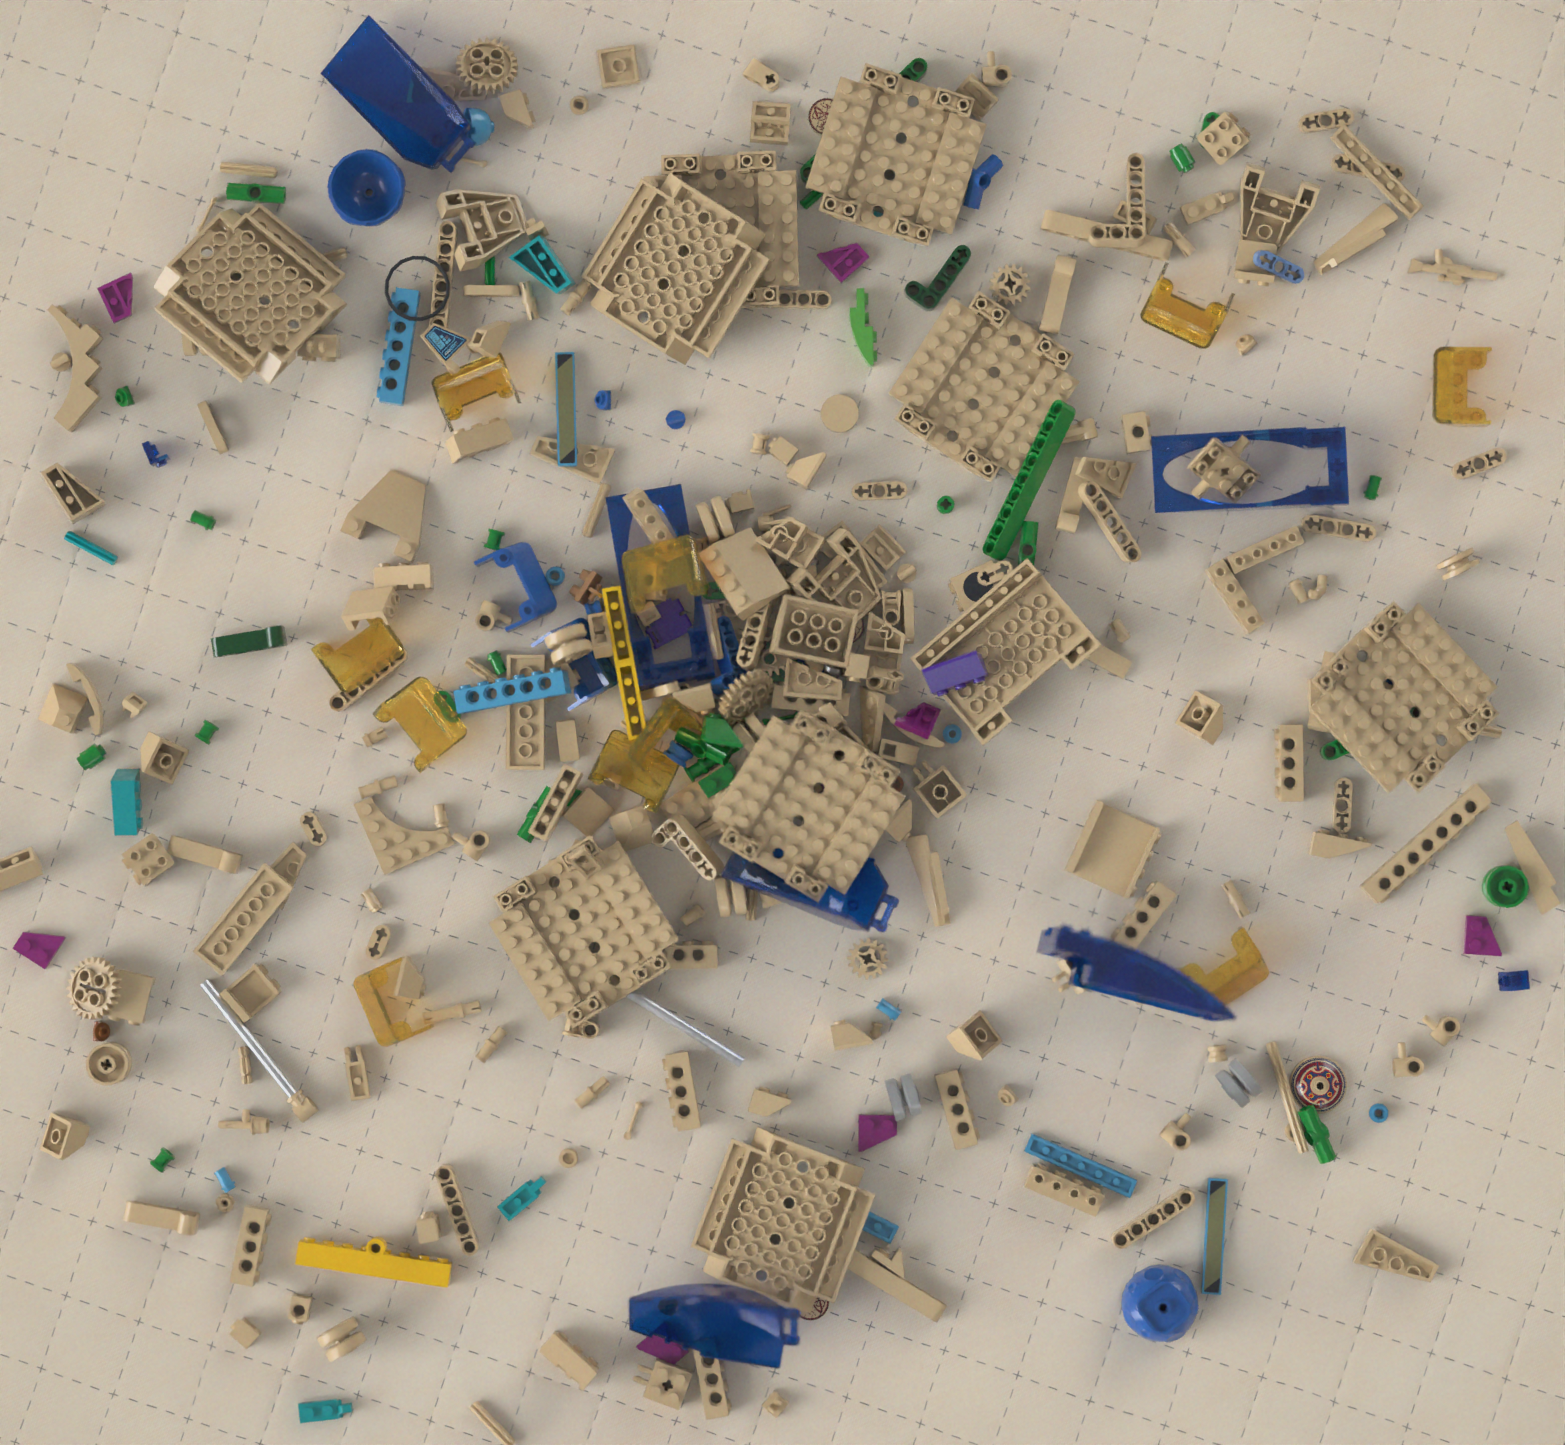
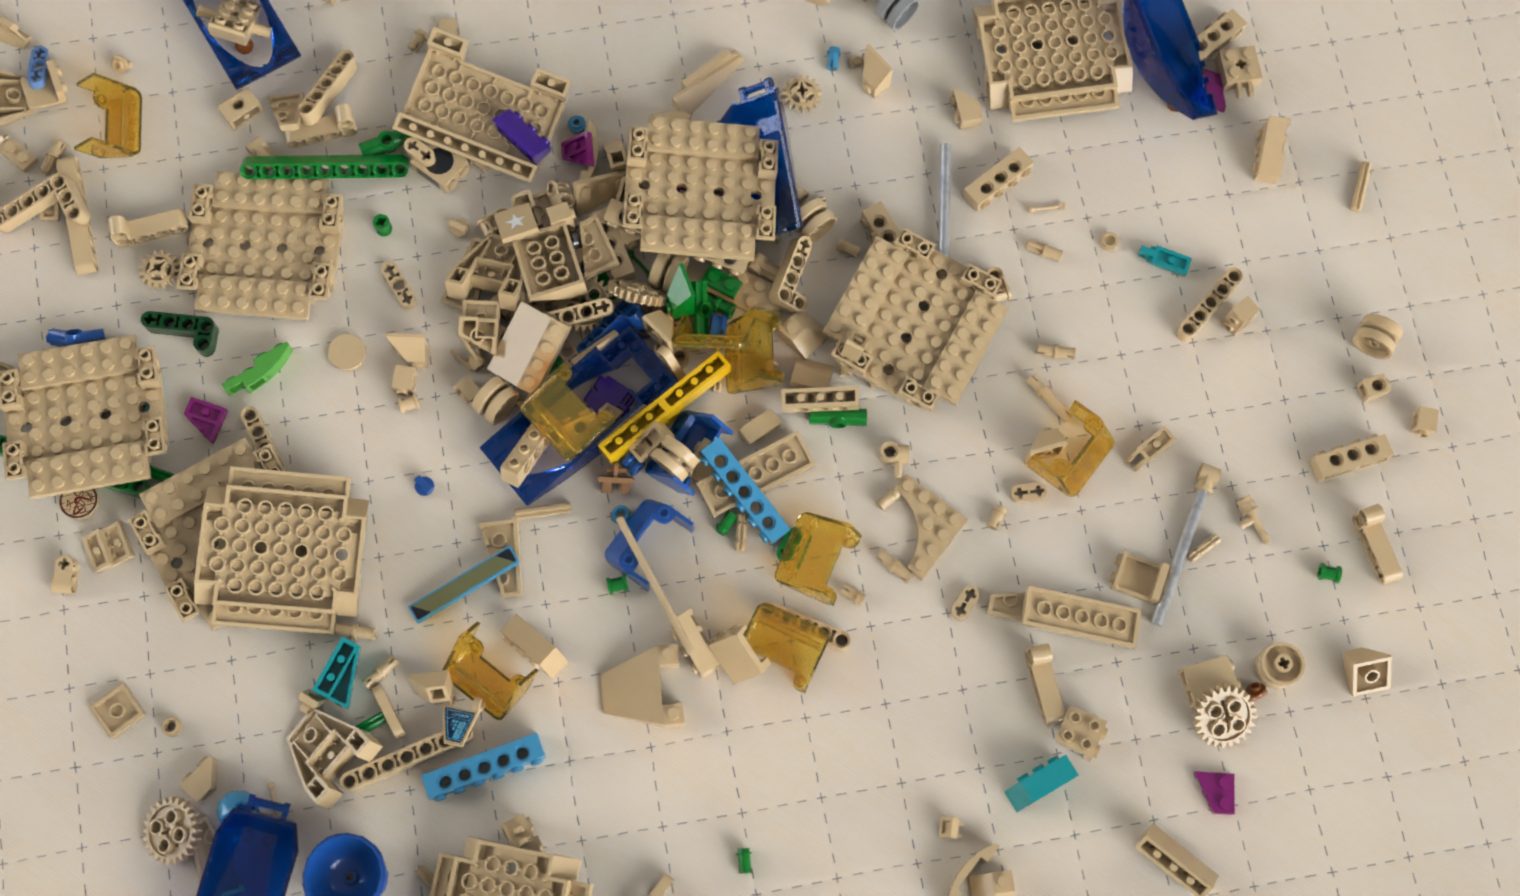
camera: 120 degrees left, 15 degrees down
(91, 756) = (1020, 840): green brick -> none
(161, 757) = (982, 774): tan slope -> none
(206, 732) = (935, 746): green bush -> none
(225, 1180) = (1310, 511): dark azure pin -> none
(225, 1197) = (1329, 504): tan plate -> none
(249, 641) = (831, 752): dark green beam -> none
(322, 1410) = (1441, 325): teal hinge -> none
(374, 1263) = (1297, 348): yellow hinge -> none
(444, 301) = (443, 797): black piece -> none
(467, 567) = (655, 585): none -> tan piece
(493, 611) = (683, 549): tan piece -> none
(603, 400) = (439, 557): blue plate -> none
(871, 623) = (516, 223): none -> tan tile
(875, 1129) = (936, 21): magenta wing -> none
(883, 547) = (446, 255): tan plate -> none
(907, 615) = (501, 201): tan beam -> none
(927, 788) = (629, 106): tan hinge -> none

